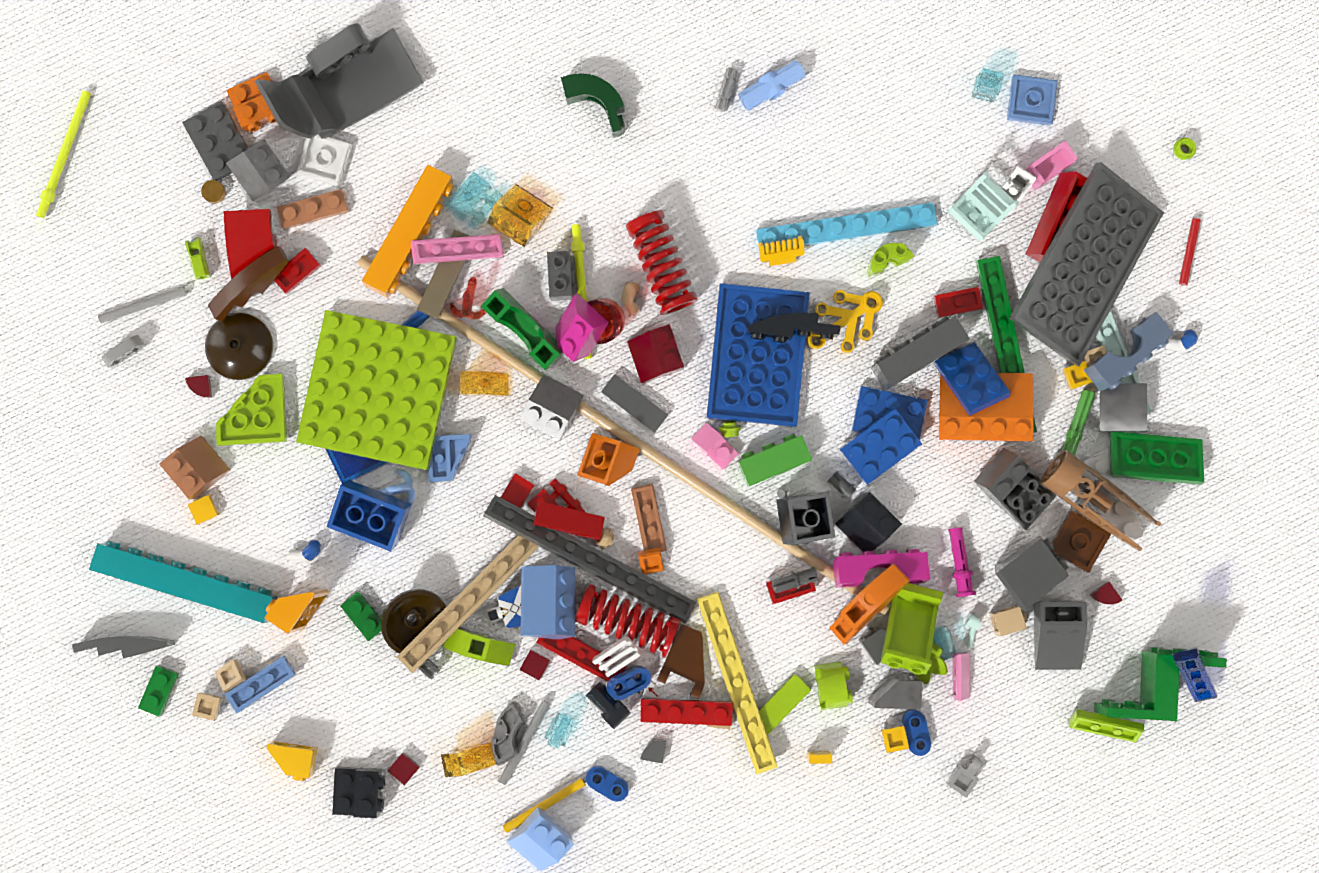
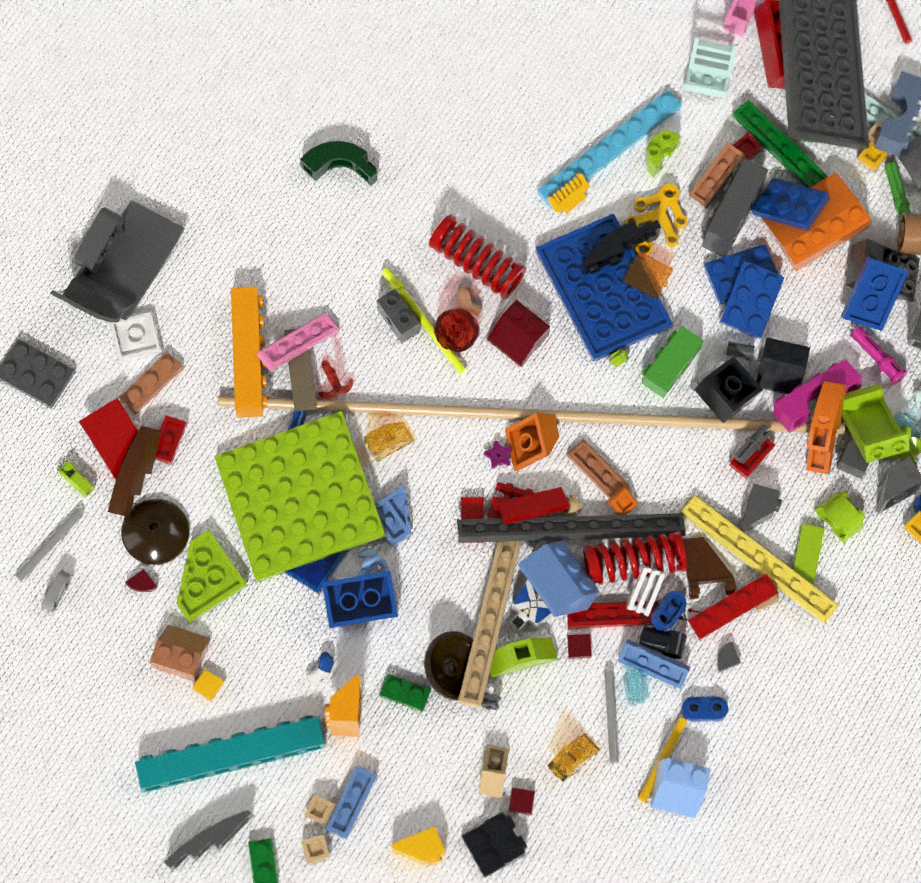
camera: 30 degrees left, 15 degrees down
(213, 191) = (55, 417): pearl gold tile -> none
(250, 105) = (49, 324): orange plate -> none
(258, 170) = (87, 373): flat silver slope -> none
(394, 730) = (493, 771): none -> tan slope
(468, 196) = (278, 299): clear light blue plate -> none
(506, 733) = (590, 717): flat silver tile -> none
(512, 314) = (395, 373): green arch -> none
(519, 215) = (332, 288): clear yellow slope -> none
(551, 407) = (459, 422): flat silver slope -> none
(577, 454) = (495, 460): none -> magenta plate
(579, 329) = (442, 345): dark pink slope -> none
(587, 720) = (654, 663): none -> medium blue plate
(634, 403) = (525, 384): dark grey tile -> none
(714, 446) = (611, 379): bright pink slope -> none
(726, 89) = (441, 96): light grey axle -> none
(766, 638) = (760, 506): none -> dark grey slope
(772, 85) = (477, 72): light blue piece -> none
(803, 369) = (648, 275): none -> clear orange piece
(819, 757) = (868, 578): yellow tile -> none
(924, 312) = (717, 175): none -> nougat plate
(992, 509) = (874, 293): none -> blue plate
(1018, 183) = (727, 34): white slope -> none

